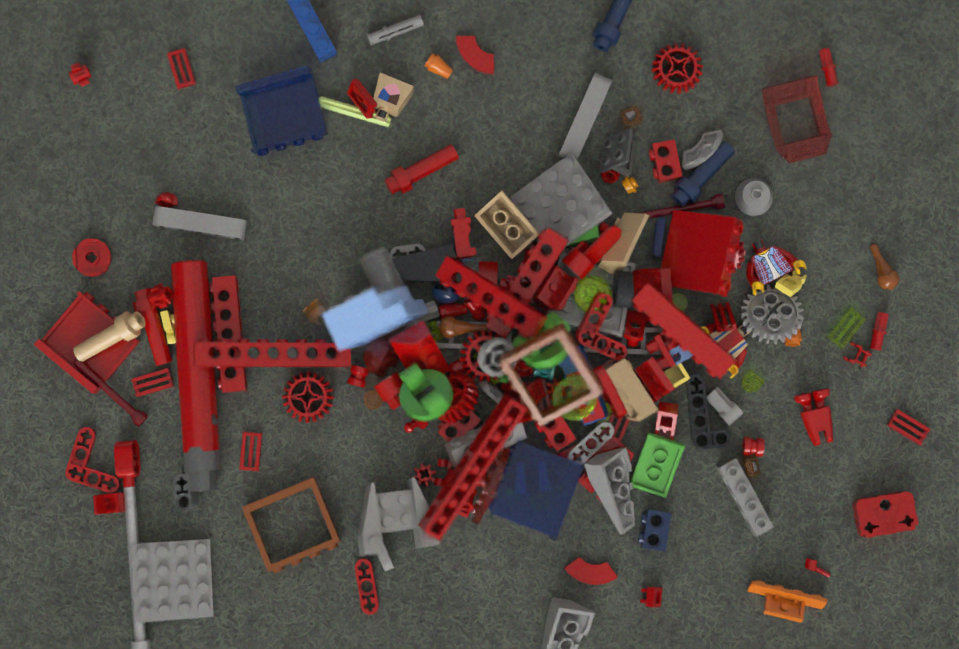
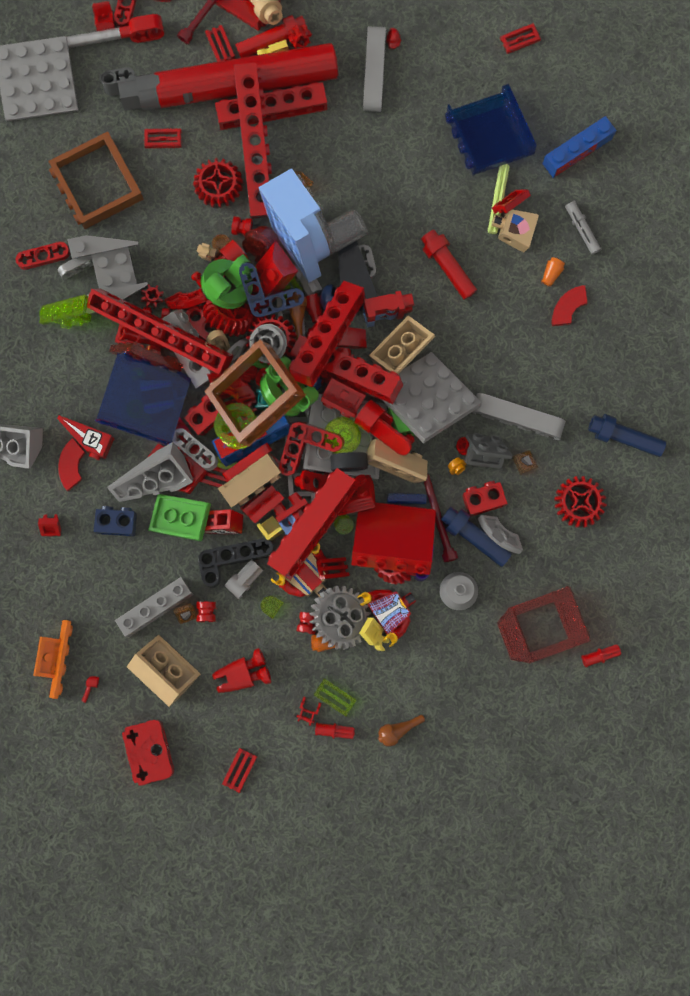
camera: 85 degrees right, 5 degrees down
(384, 414) = (206, 252): none -> tan plate
(434, 440) = (185, 300): none -> red tile
(435, 564) = (66, 312): none -> clear neon green bracket
(446, 361) = (260, 298): none -> dark blue beam
(483, 409) = (219, 340): none -> tan plate
(568, 549) = (92, 440): none -> slope
(775, 350) = (305, 619): none -> red wheel
(807, 493) = (163, 670): none -> tan slope

